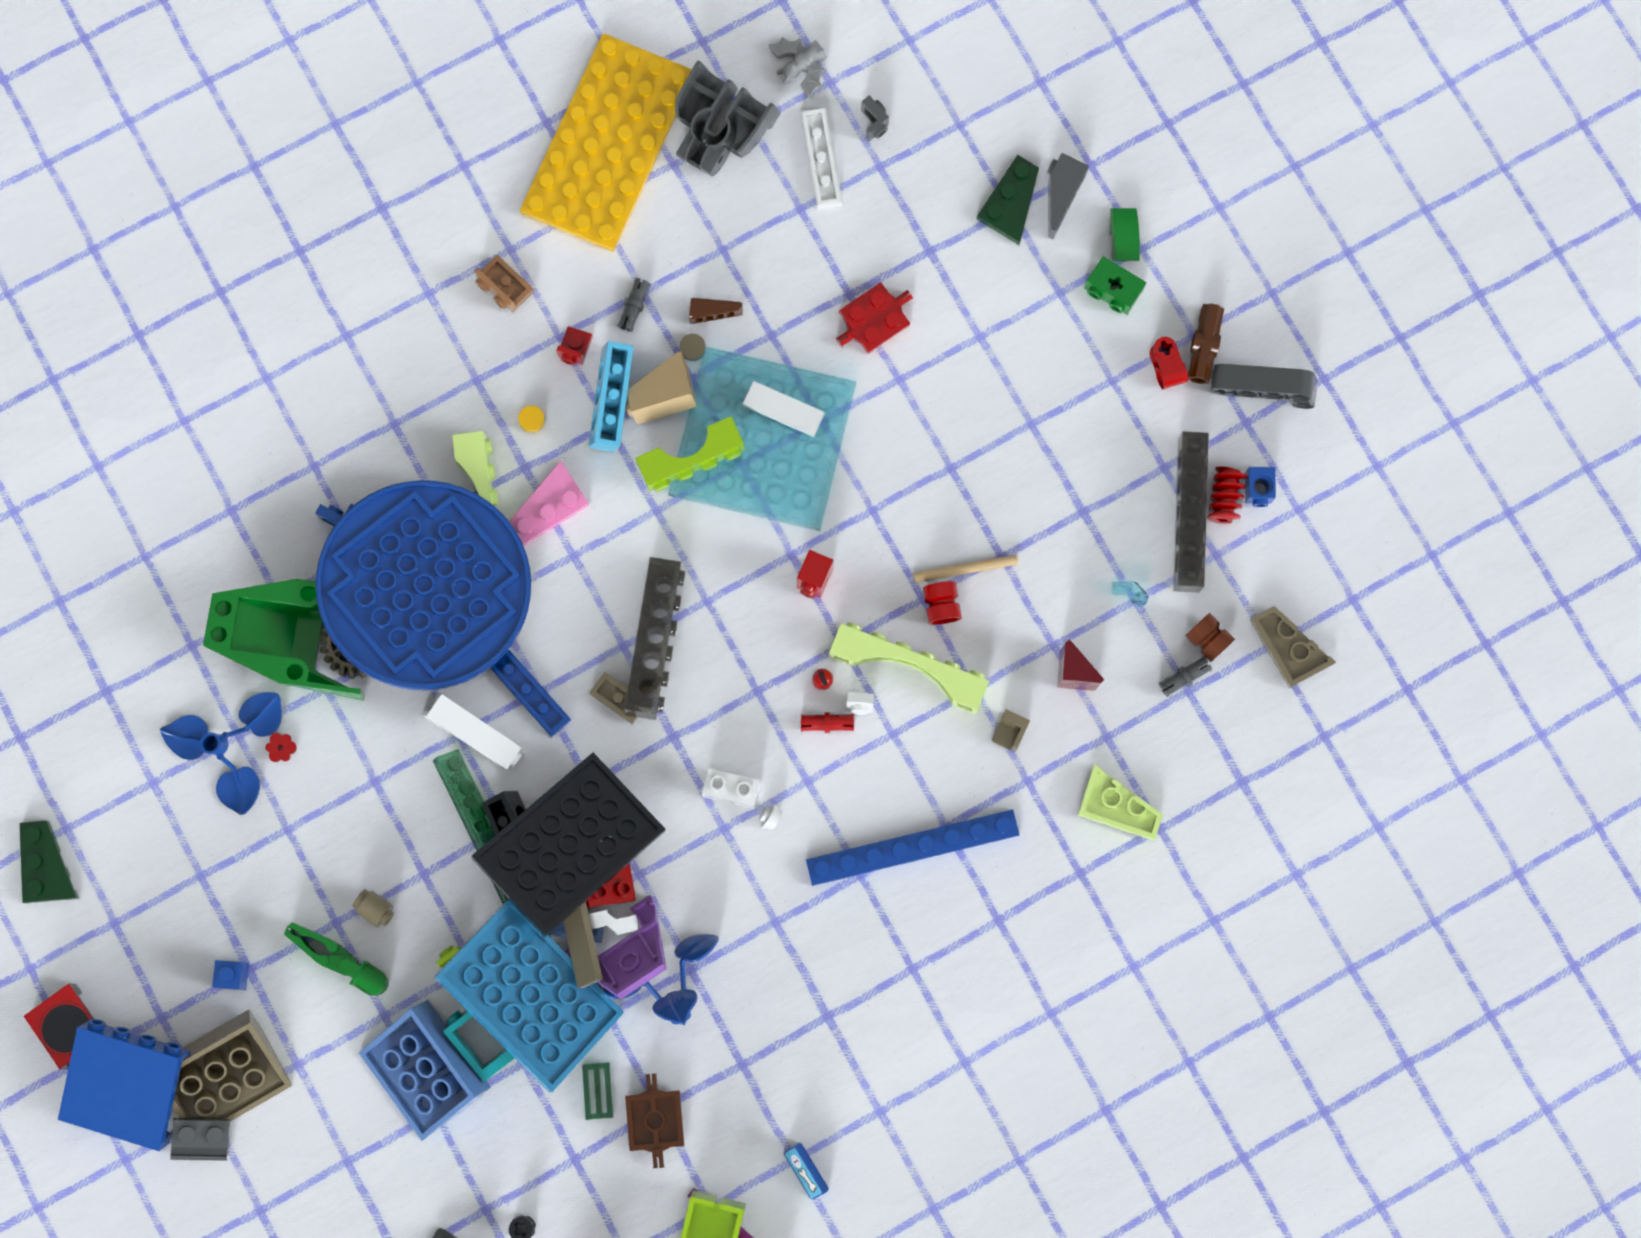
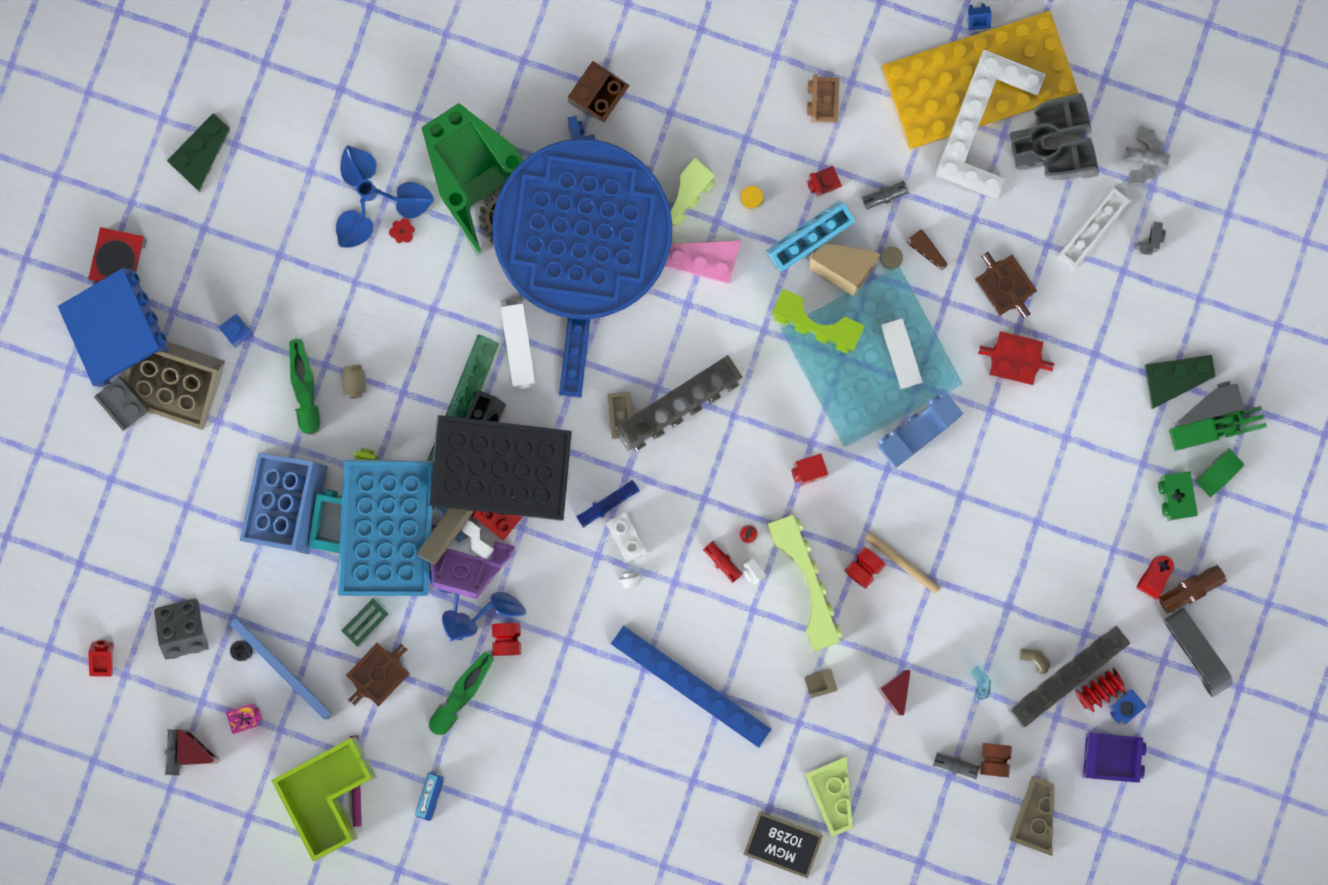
camera: 45 degrees right, 5 degrees up
(317, 468) = (597, 92): none -> reddish brown slope
(554, 95) = (979, 17): none -> blue tile
(575, 1205) = (281, 669): none -> medium blue tile
(658, 225) = (988, 70): none -> white plate
(685, 778) = (611, 501): none -> clear blue pin
(726, 975) = (506, 639): none -> red wheel
(746, 1095) = (444, 717): none -> green arm
(803, 272) = (1005, 285): none -> reddish brown plate
(864, 470) = (920, 430): none -> medium blue brick
(1080, 214) = (1206, 430): none -> green arm
(1124, 889) = (783, 845): none -> black tile
(1151, 524) = (1038, 658): none -> dark tan arm
(1294, 535) = (1114, 757): none -> dark purple panel

